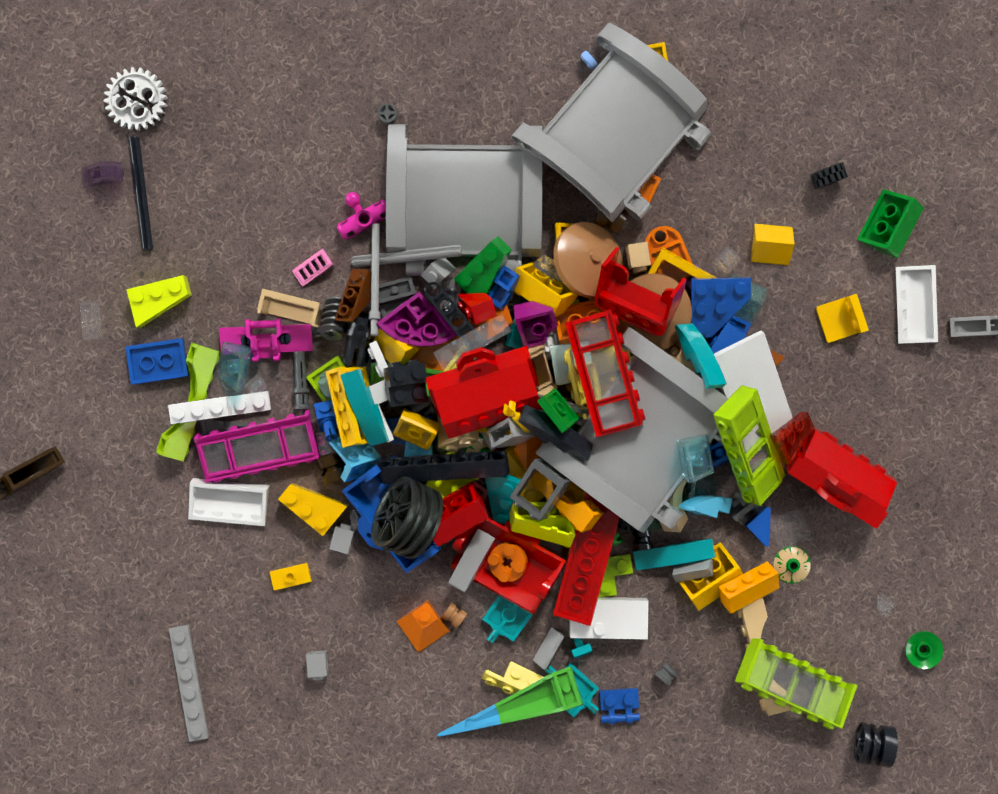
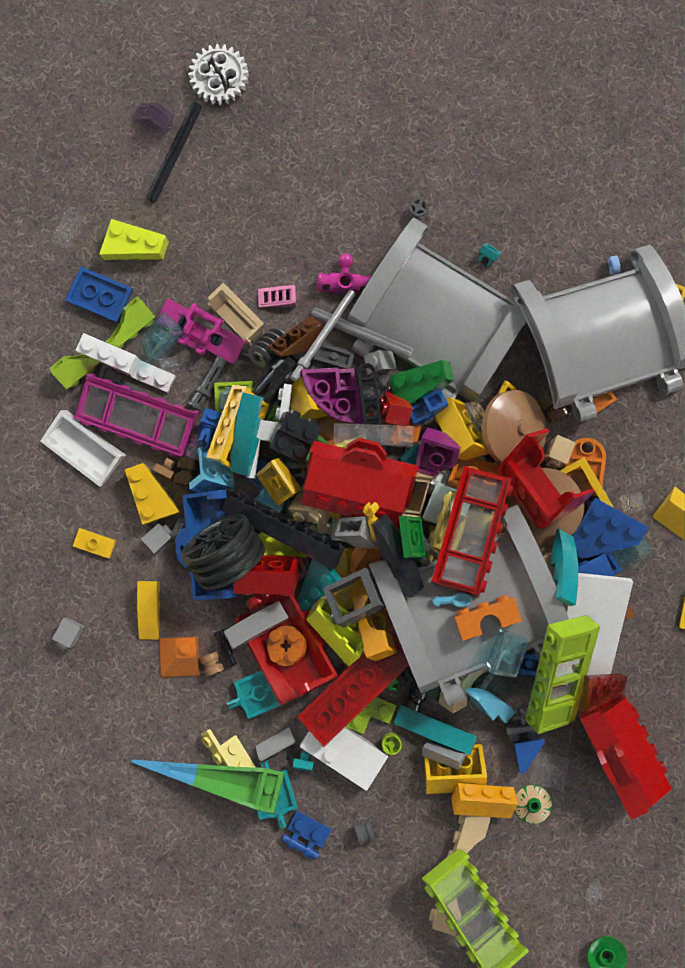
camera: 35 degrees right, 5 degrees down
(312, 477) = (165, 470): none -> medium nougat tile
(372, 603) = (148, 609): none -> yellow slope
(457, 595) = (225, 648): none -> black axle
(474, 114) = (489, 252): none -> teal tile
(628, 437) = (459, 599): none -> medium azure piece
(644, 591) = (391, 743): none -> lime wheel
(669, 423) = (469, 621): none -> orange arch

